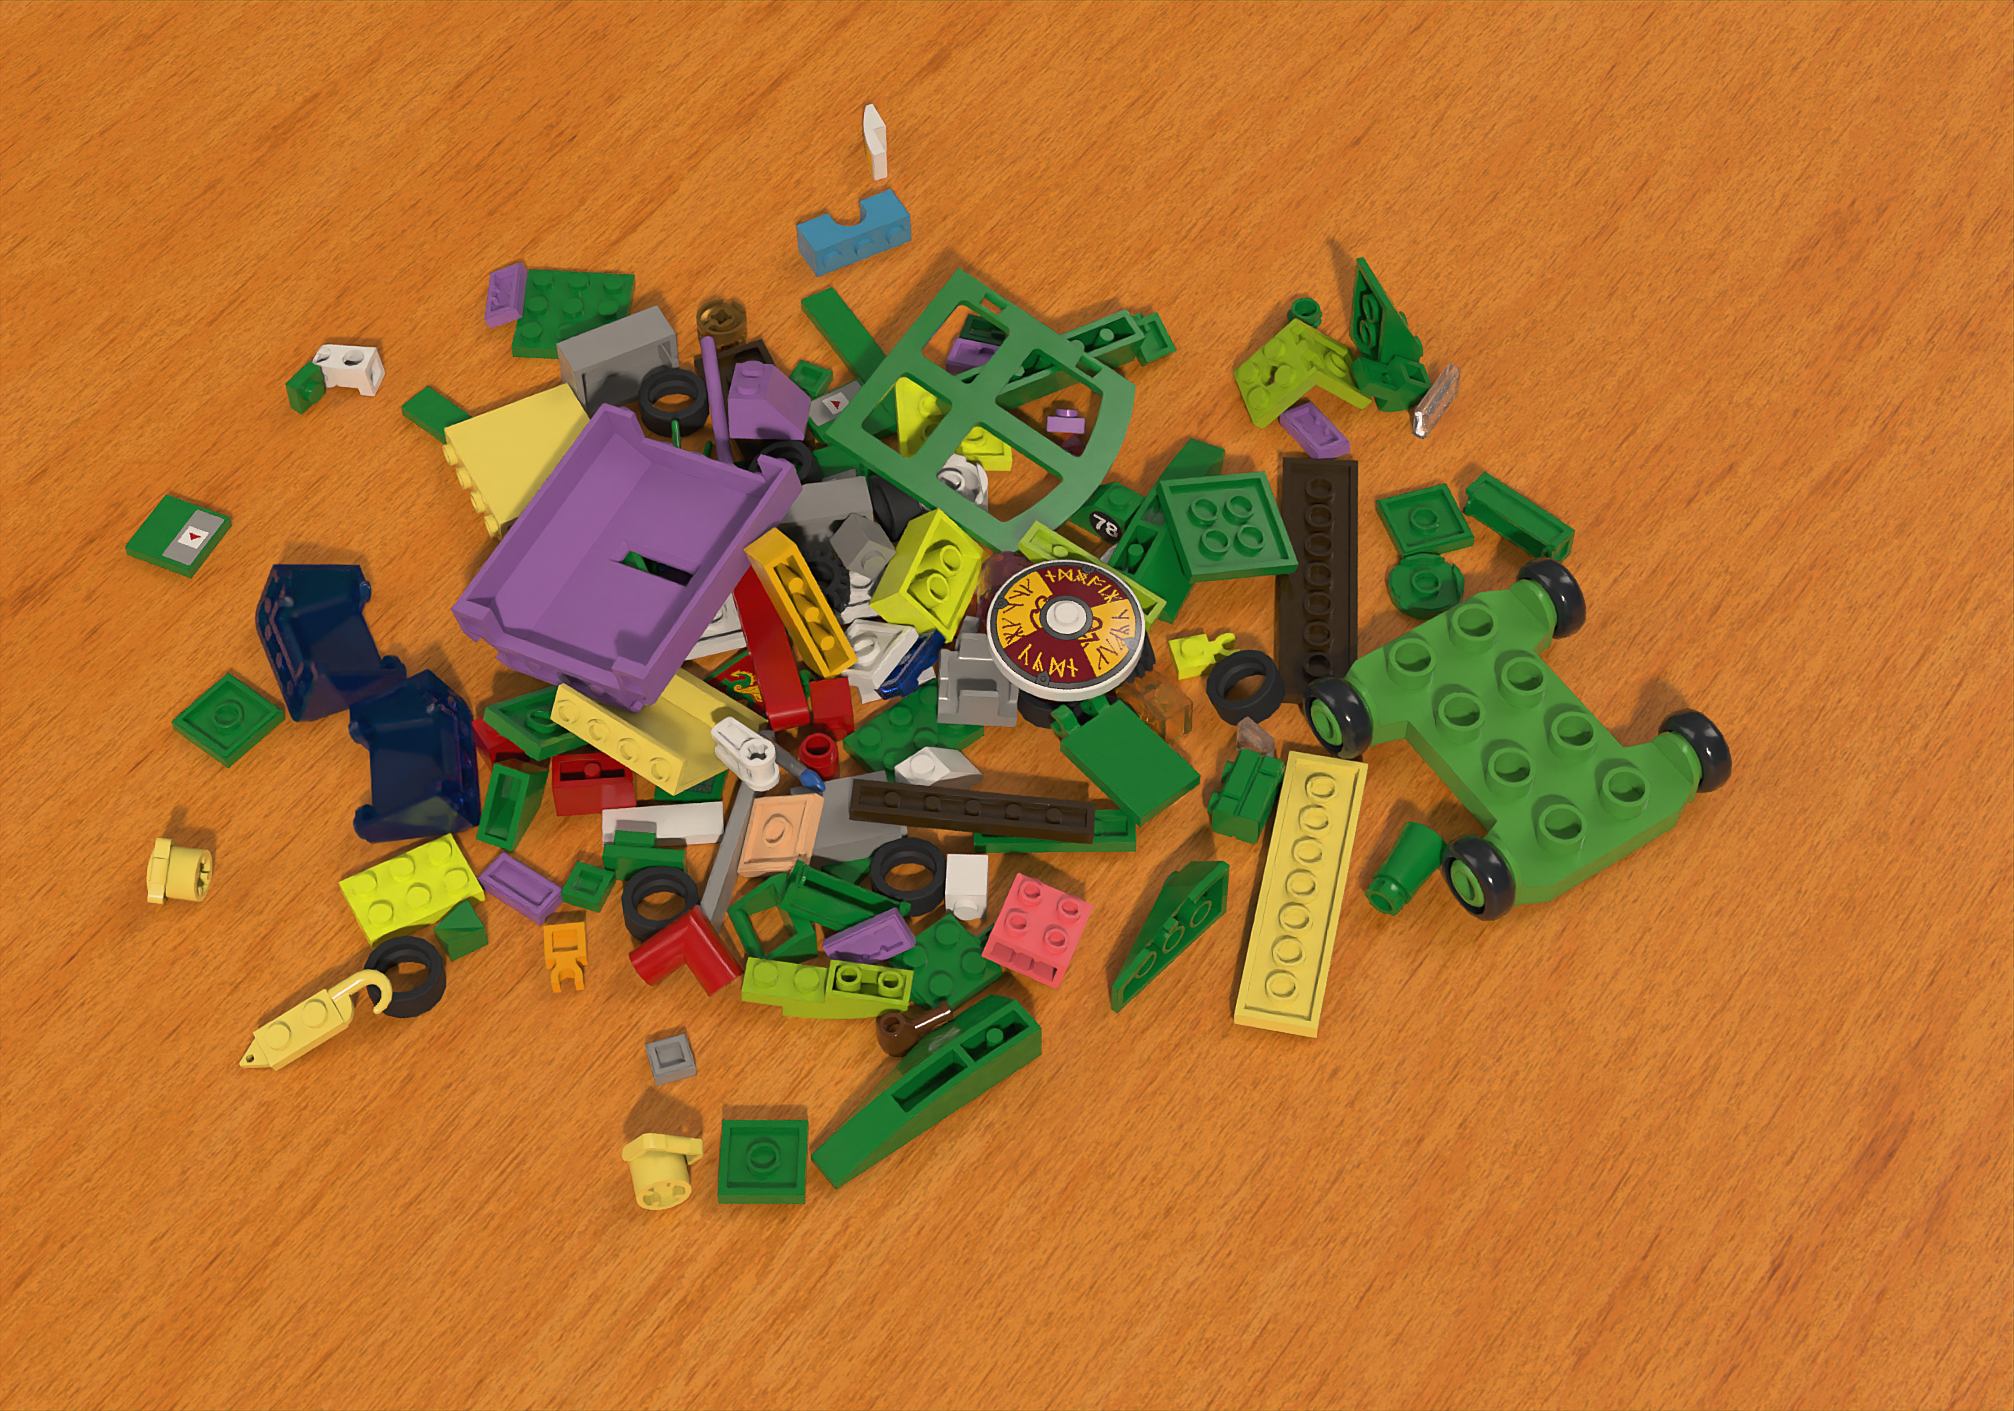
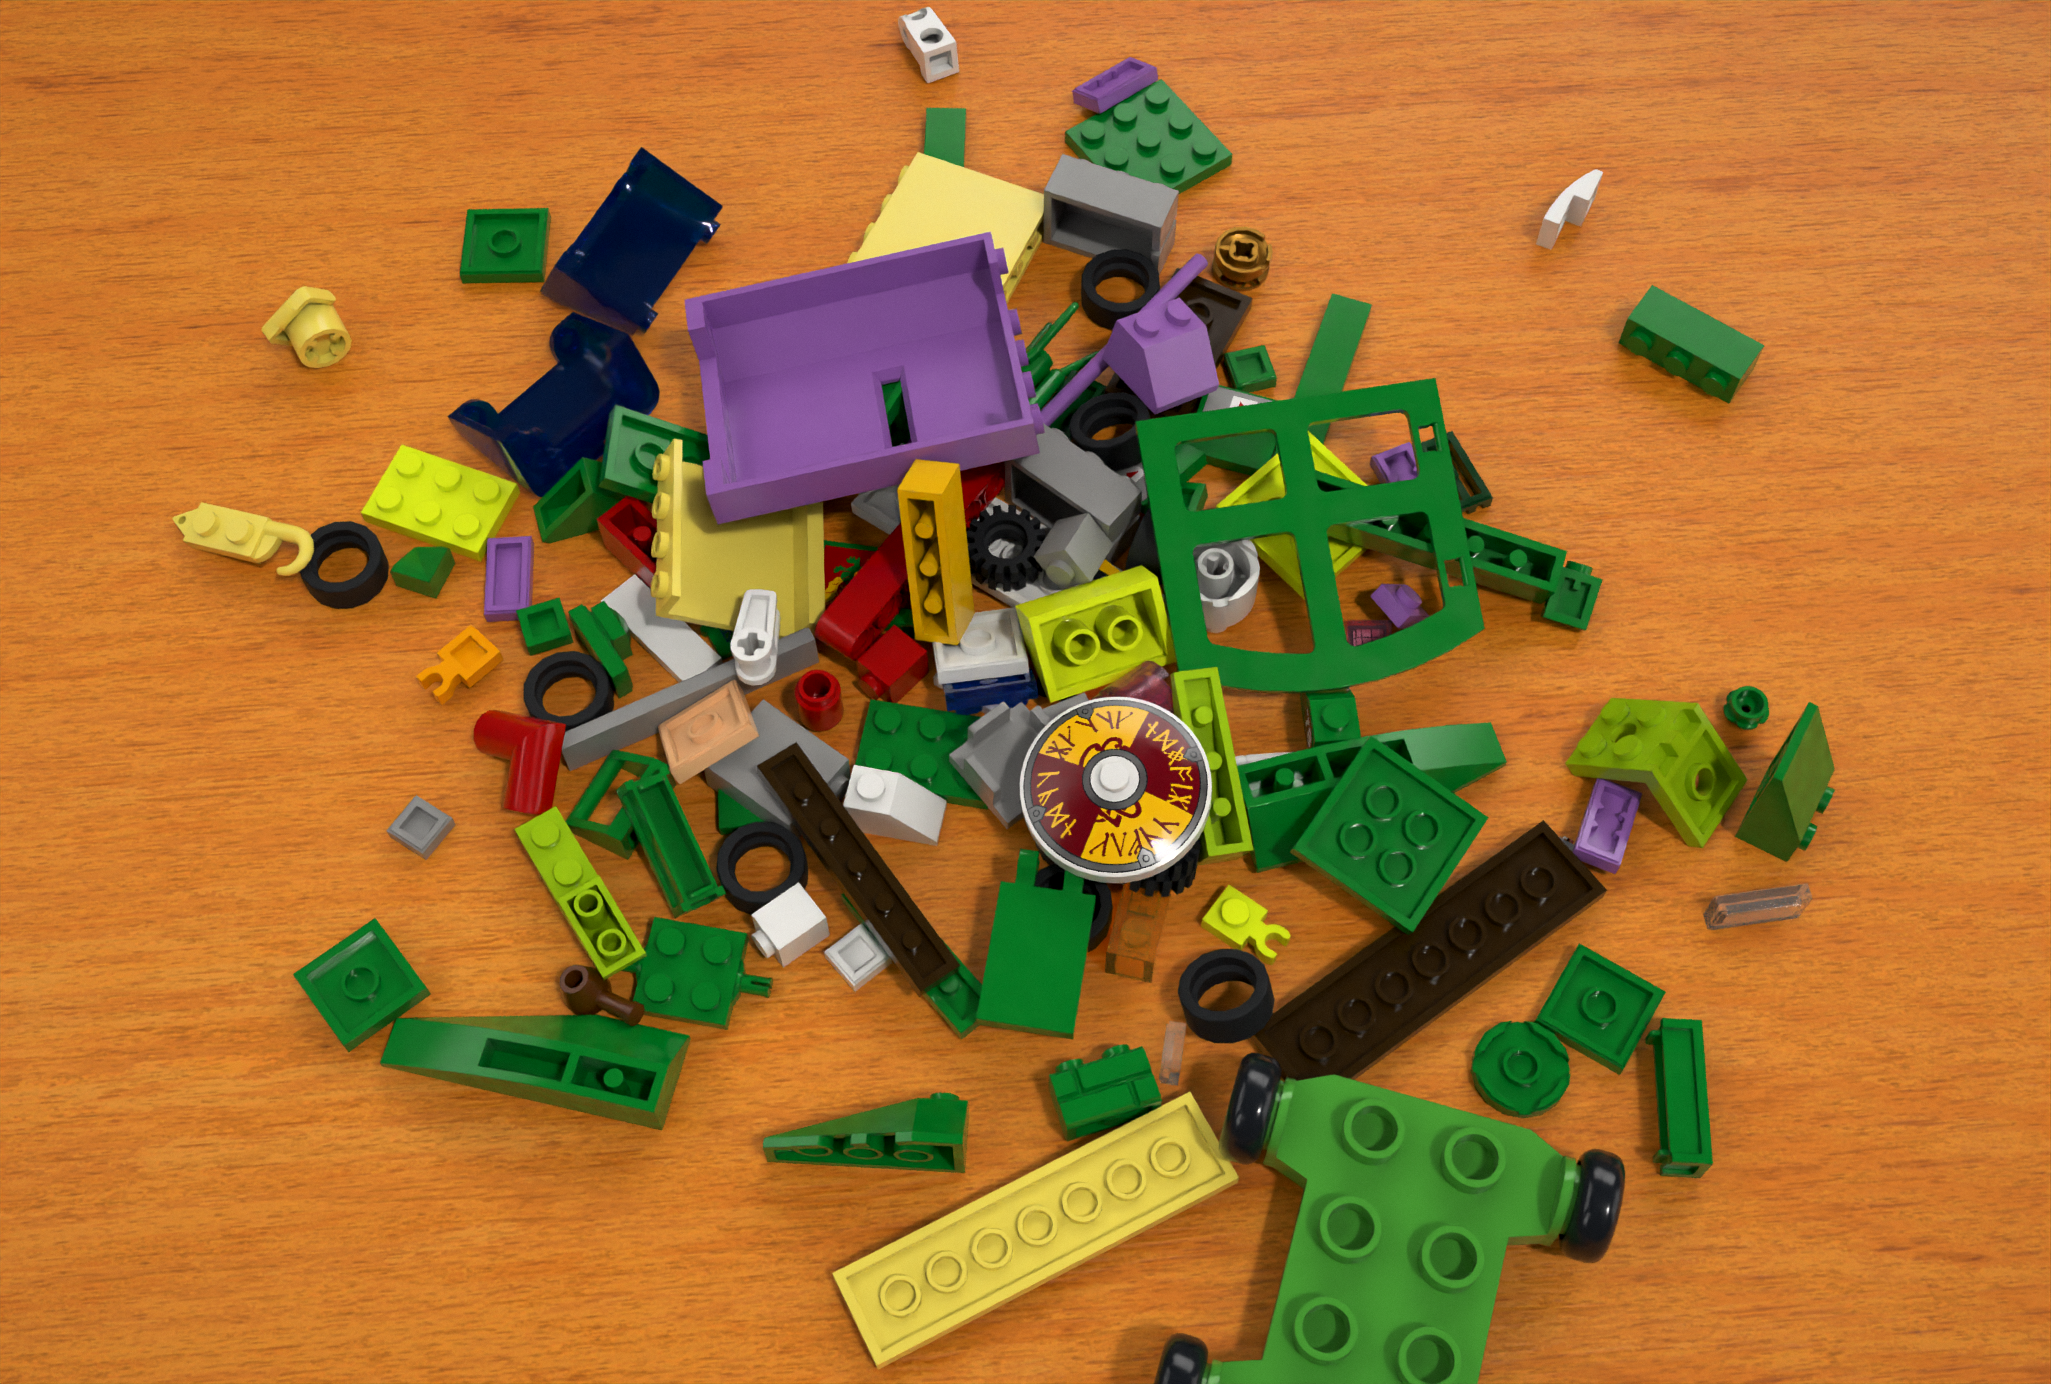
camera: 50 degrees right, 10 degrees up
(178, 536) = (658, 70): green tile -> none
(305, 388) = (880, 31): green plate -> none
(660, 1168) = (283, 909): light yellow piece -> none
(808, 777) = (784, 676): flat silver piece -> none
(832, 246) = (1474, 289): dark azure arch -> none
(871, 940) = (649, 892): medium lavender plate -> none
(1023, 861) = (858, 957): none -> white tile
(1036, 158) = (1690, 344): none -> green brick
(1037, 930) = (780, 1023): coral brick -> none
(1394, 385) = (1733, 850): green brick -> none
(1405, 868) = (1137, 1308): green plant -> none

